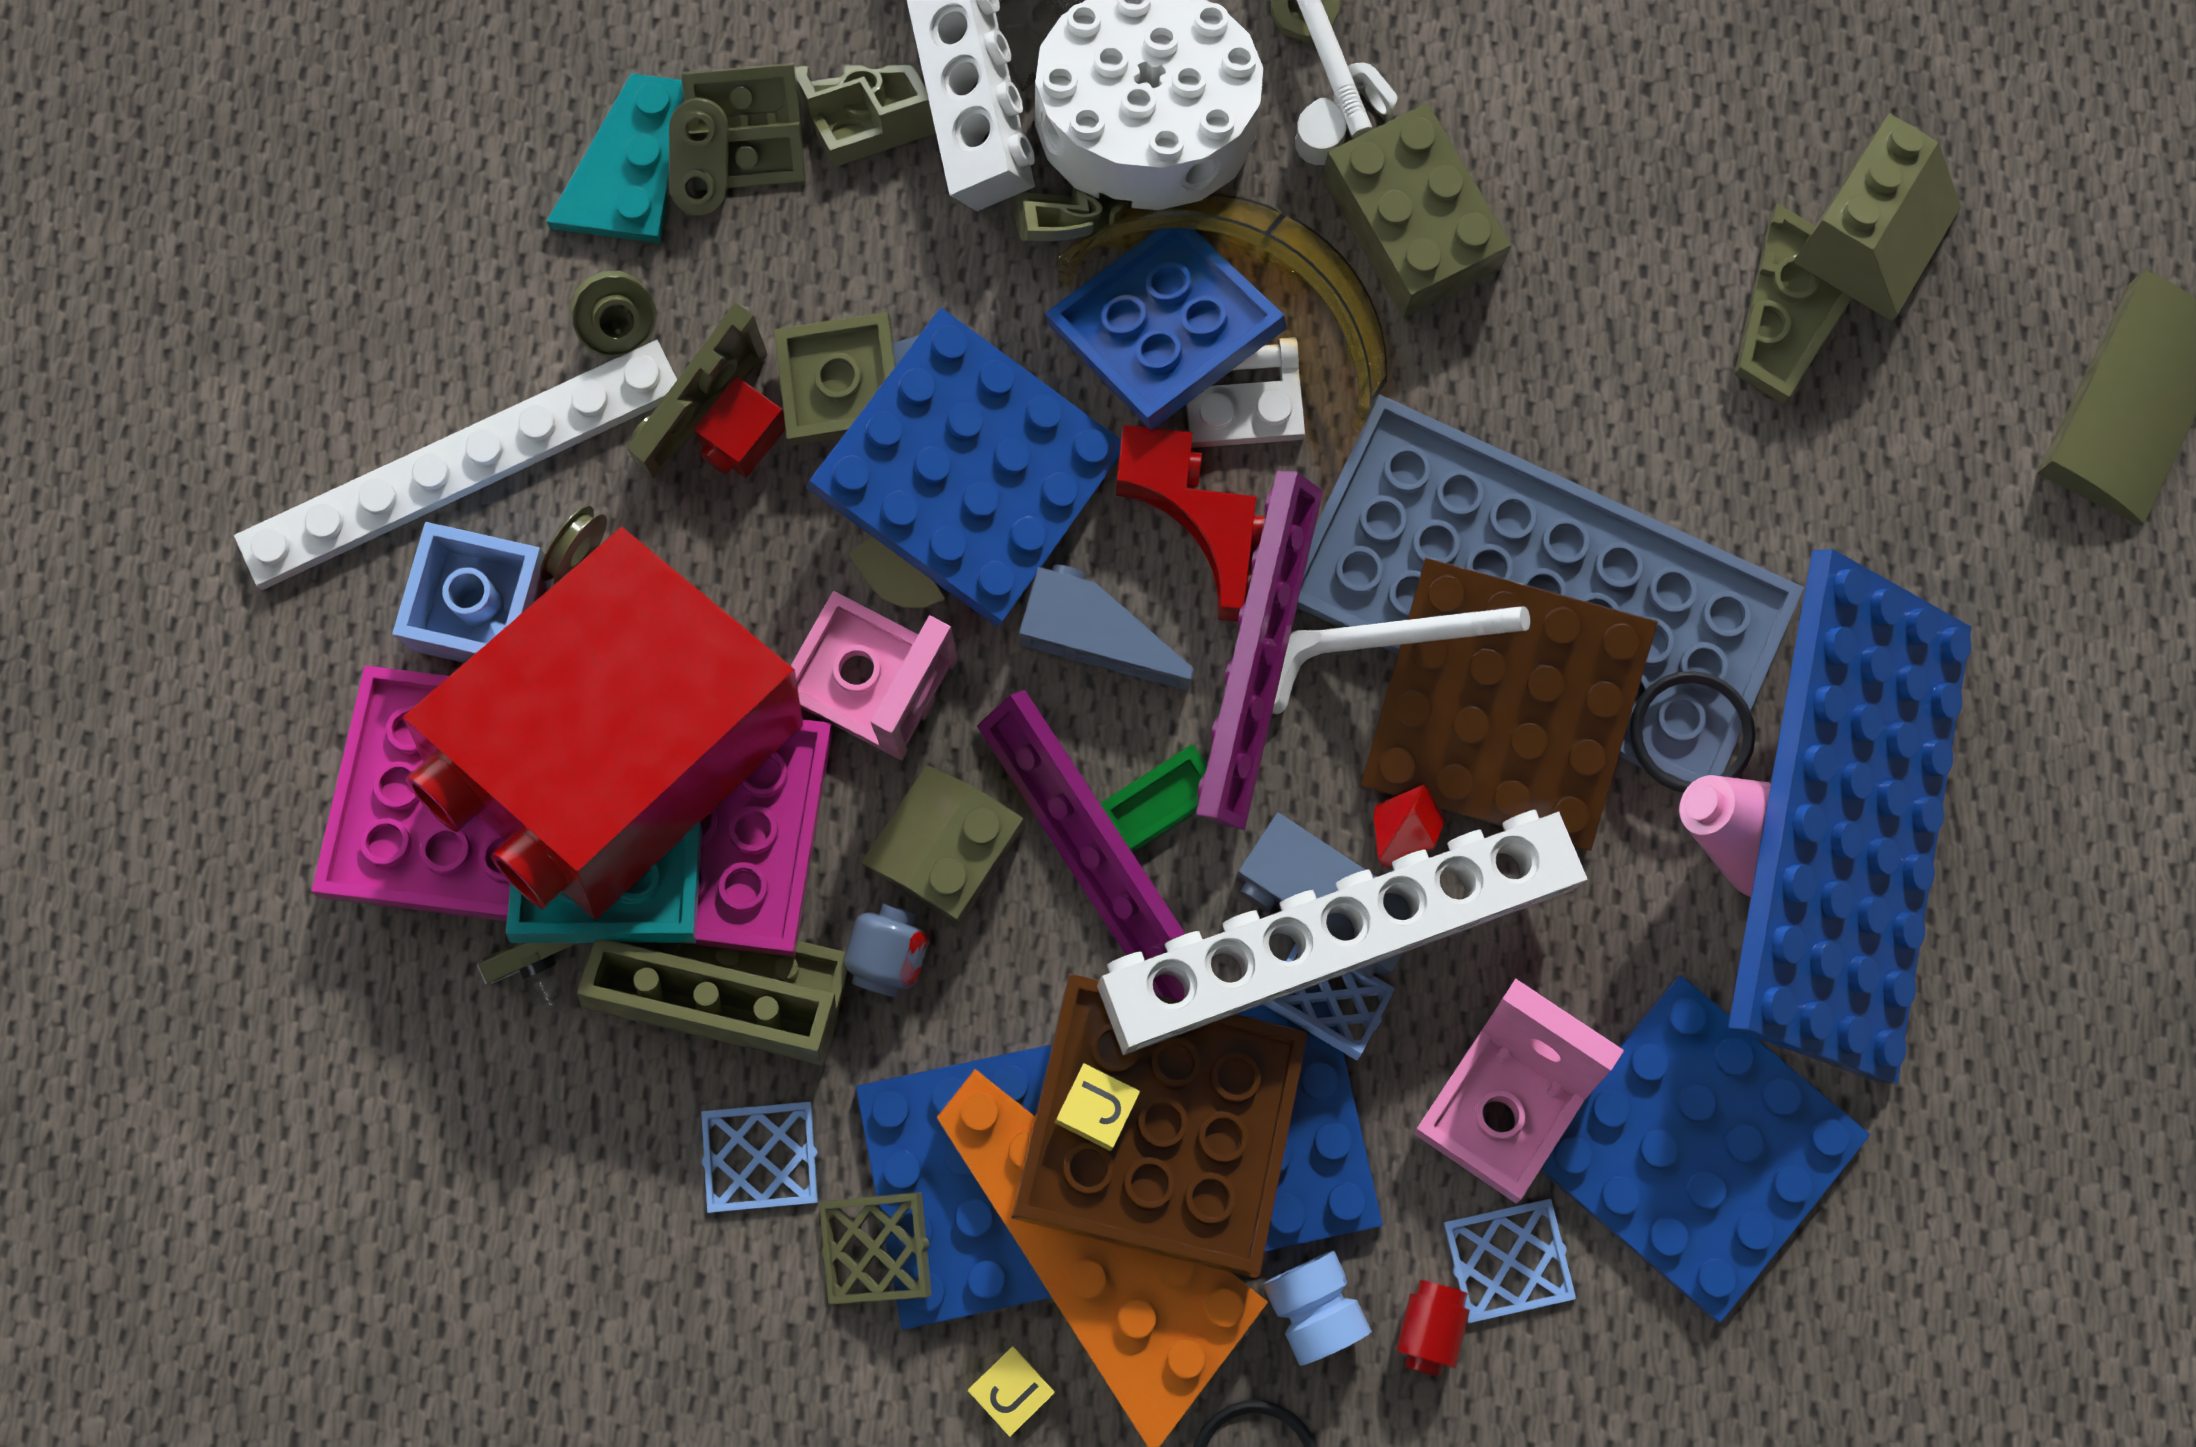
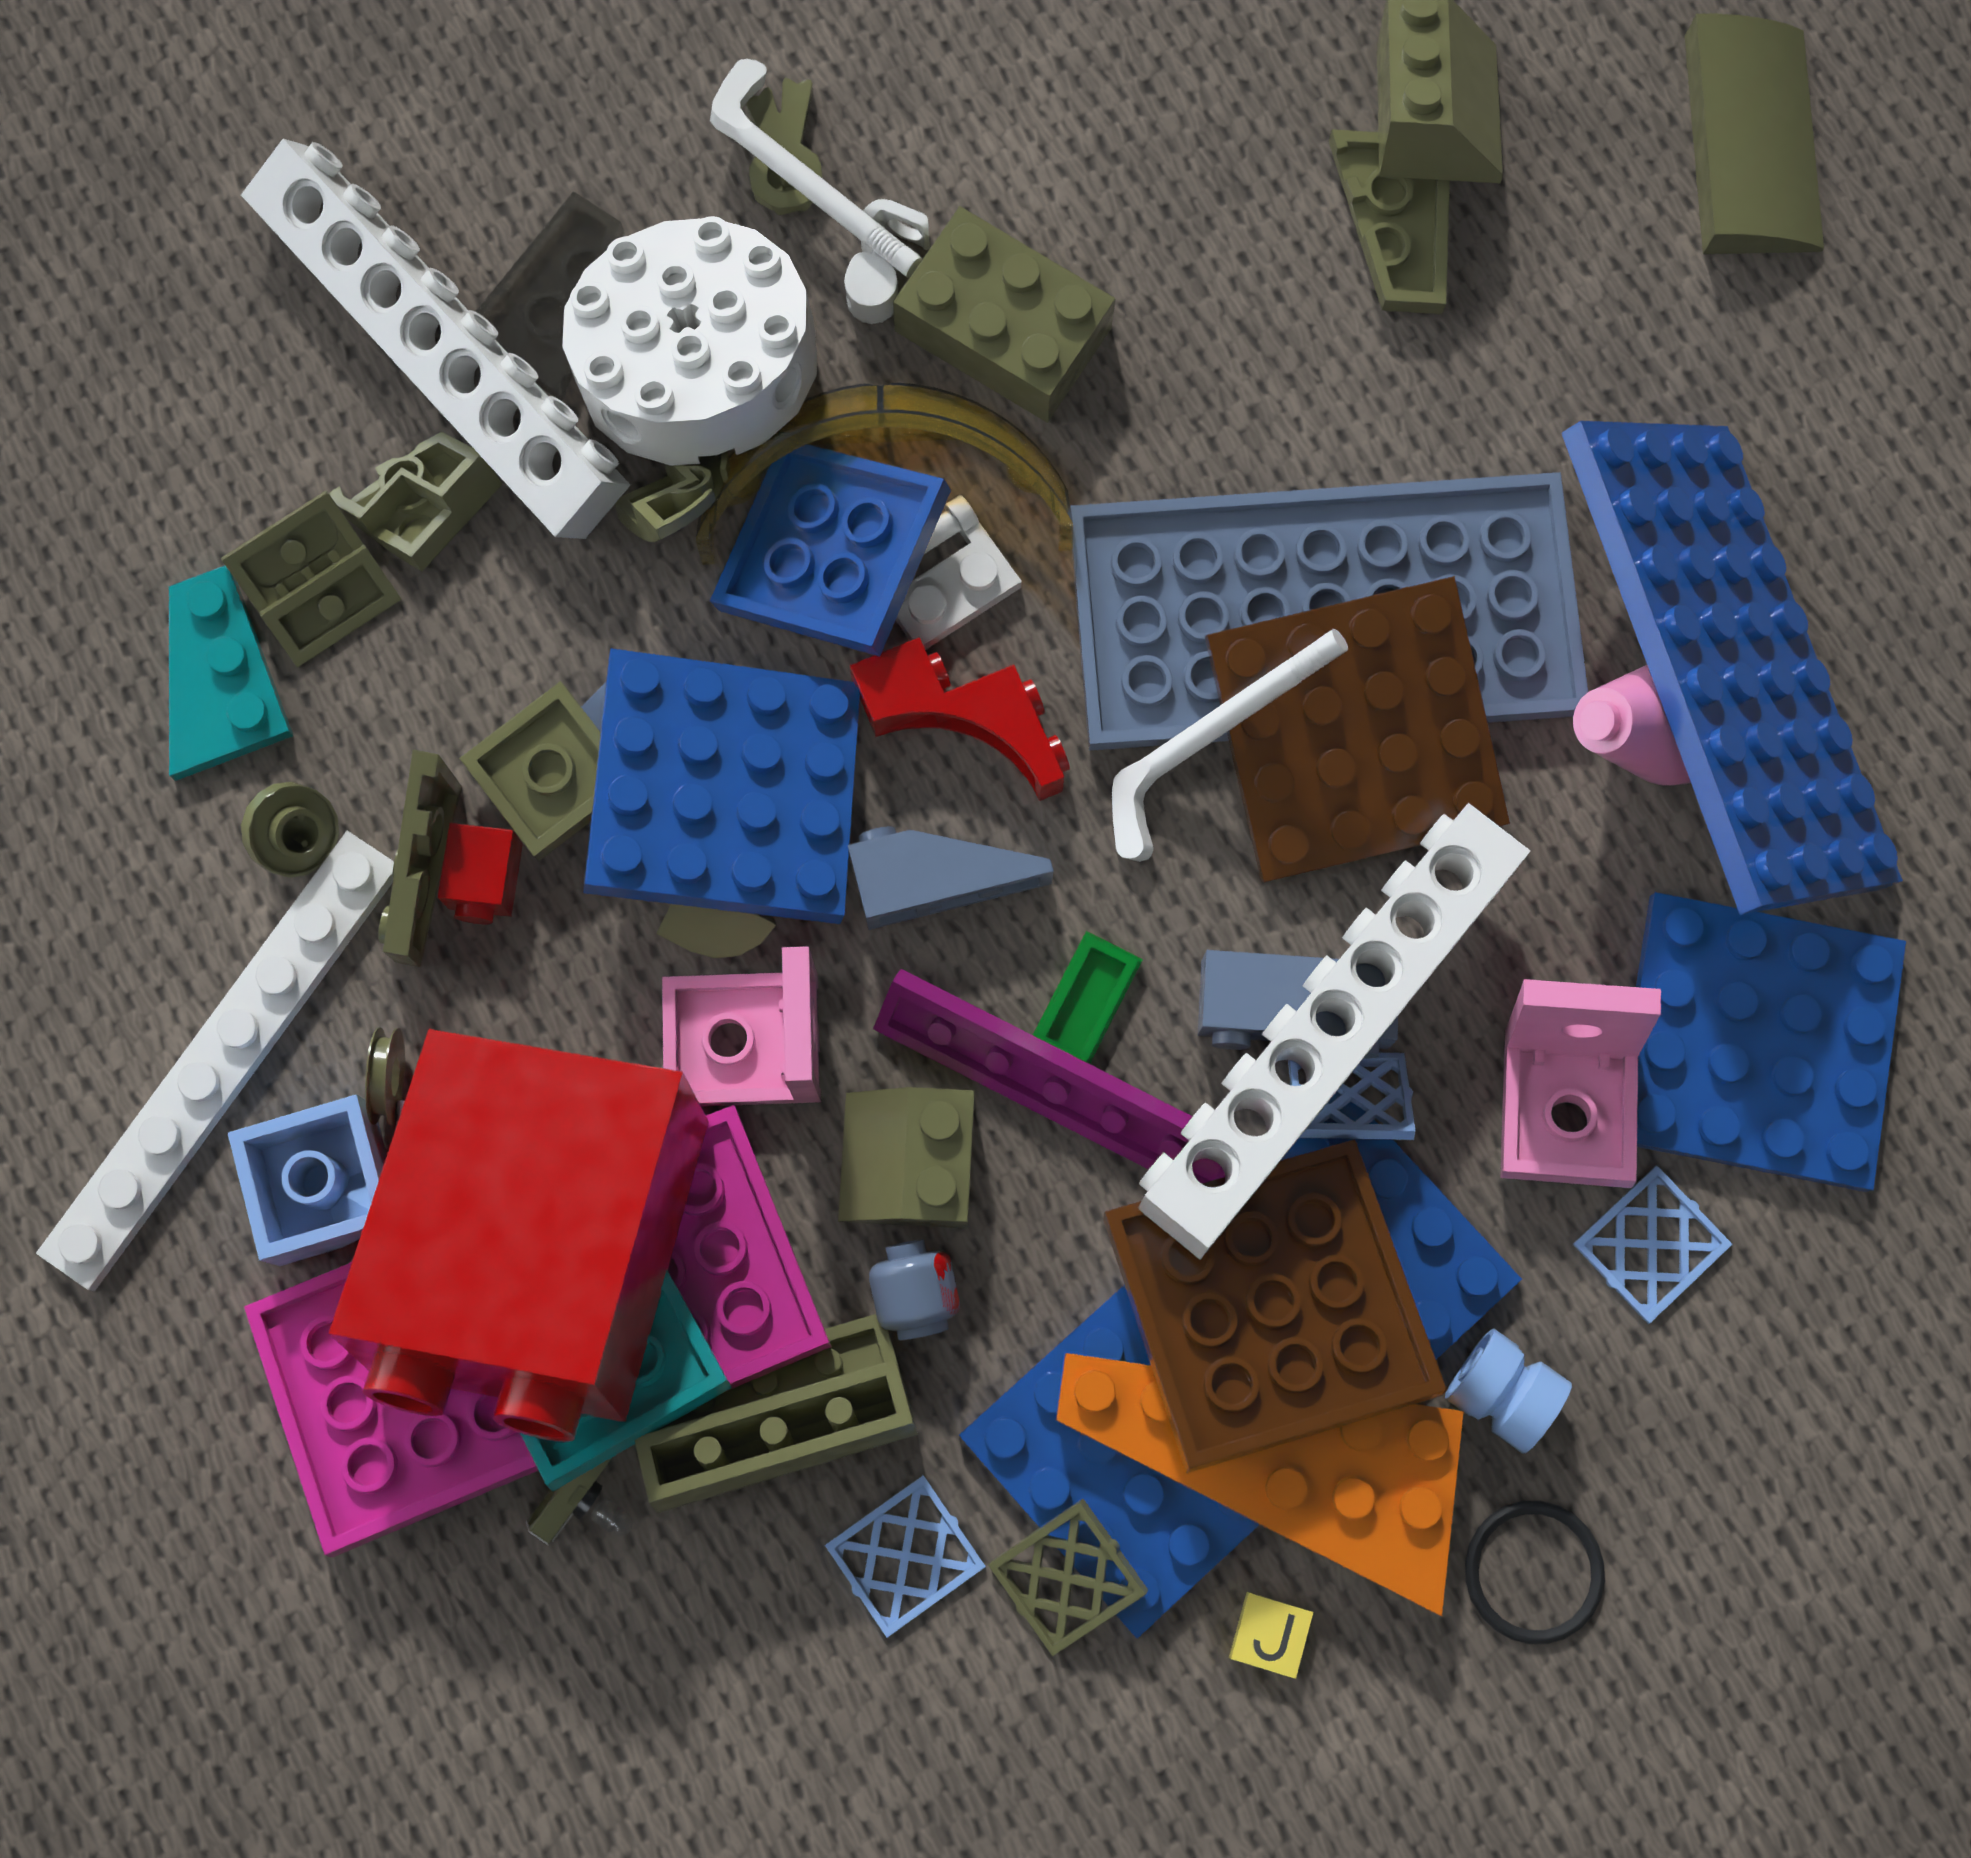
camera: 30 degrees left, 0 degrees up
(698, 157) = (286, 632): olive plate -> none
(1097, 1107) = (1207, 1322): light yellow tile -> none
(1260, 650) = (1107, 823): magenta plate -> none
(1406, 825) = (1330, 896): red slope -> none
(1433, 1328) = (1623, 1346): red brick -> none
(1684, 678) = (1535, 605): black tyre -> none

